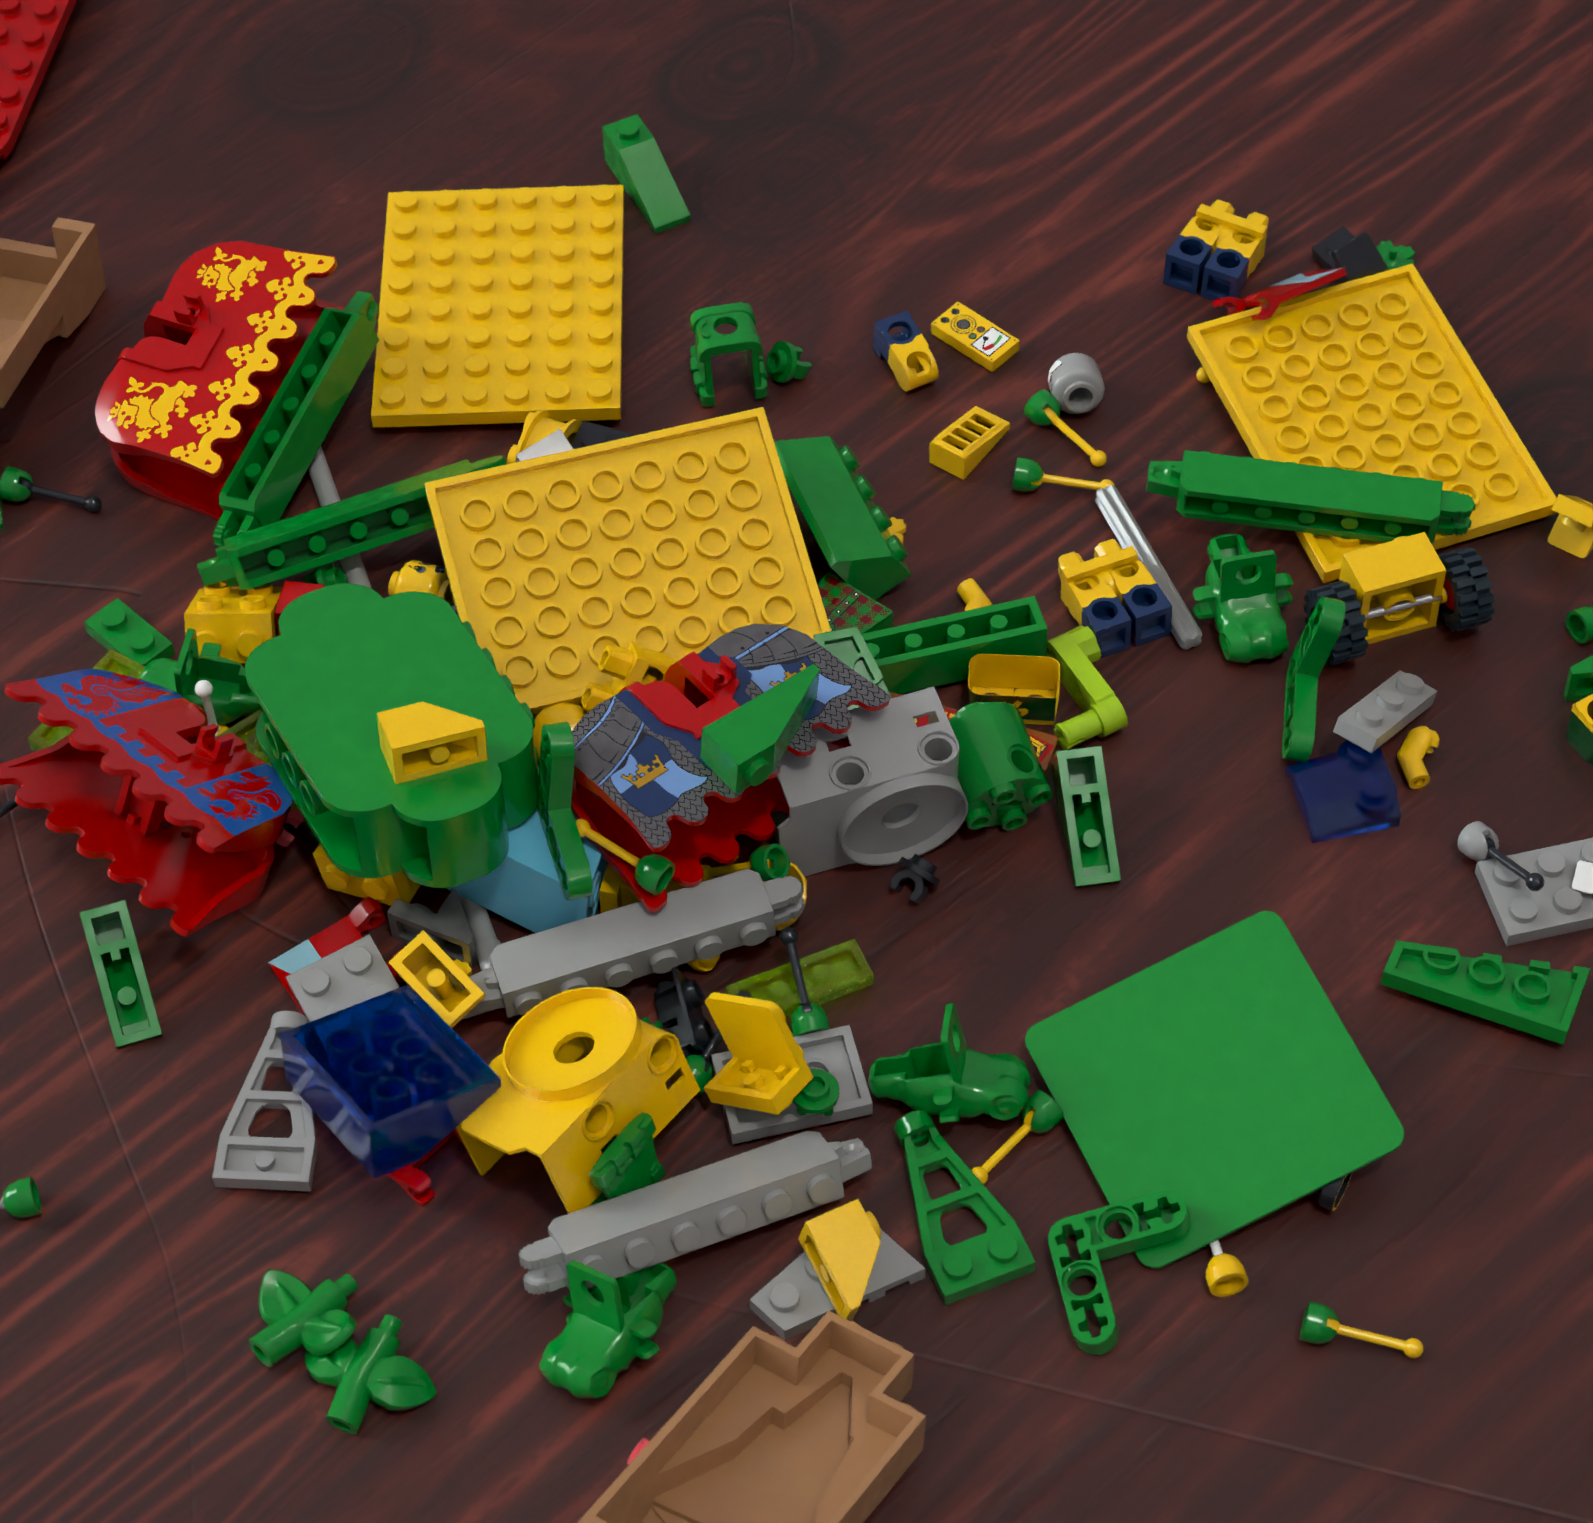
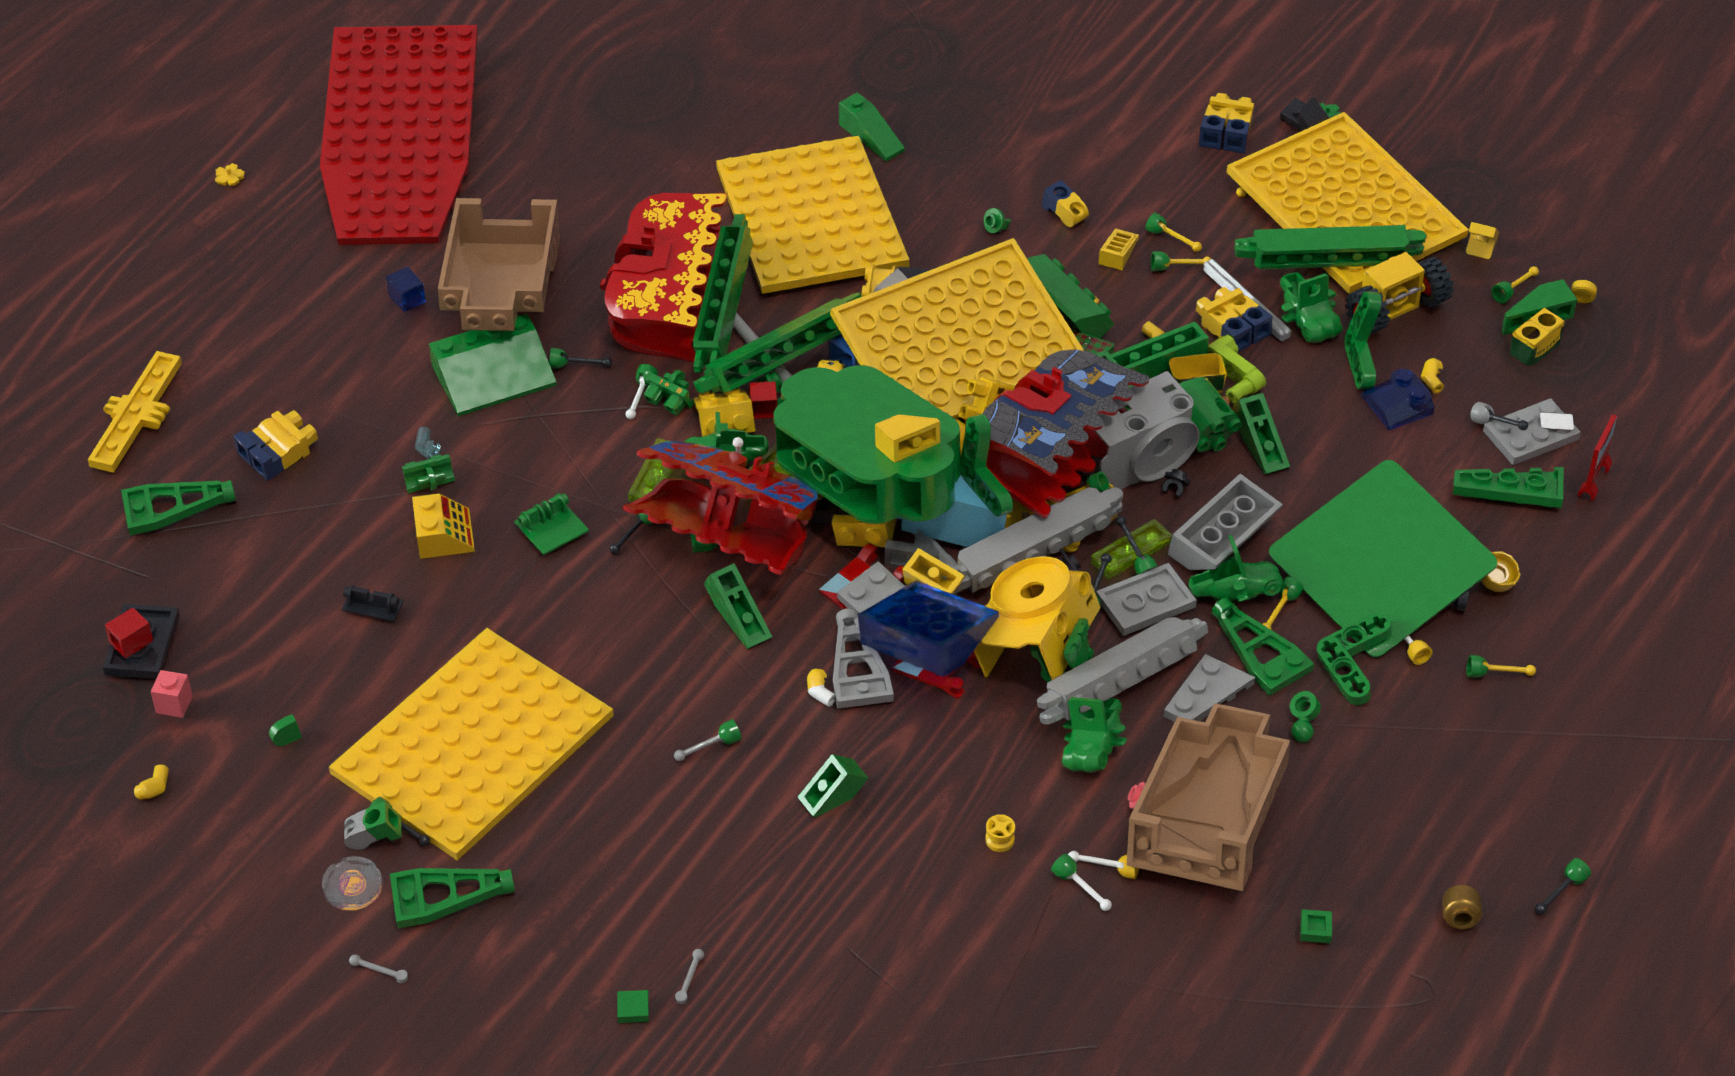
camera: 15 degrees left, 5 degrees down
(127, 633) = (654, 426): green plate -> none
(138, 539) = (641, 374): none -> hinge
(146, 564) = (672, 387): none -> green hips
(148, 1332) = (832, 785): none -> green slope
(194, 1139) = (816, 687): none -> arm
(302, 1316) = (914, 764): green plant -> none
(370, 1373) = (964, 783): green plant -> none
(387, 1468) = (1005, 828): none -> yellow wheel
(651, 871) = (1039, 493): green hinge -> none
(711, 343) = (951, 213): green piece -> none
(753, 738) = (1084, 408): green slope -> none
(766, 1060) = (1132, 578): yellow bracket -> none
(818, 1095) = (1166, 596): green plate -> none
(843, 1252) = (1212, 674): yellow slope -> none
(967, 964) = (1234, 511): none -> light grey slope
(975, 336) = (1100, 190): yellow tile -> none
(975, 1385) = (1302, 730): none -> green plate
(1076, 383) = (1171, 206): light grey head -> none
(1272, 296) = (1273, 139): red flag -> none
(1385, 711) = (1410, 352): light grey plate -> none
(1421, 1153) = (1504, 575): none -> yellow hair

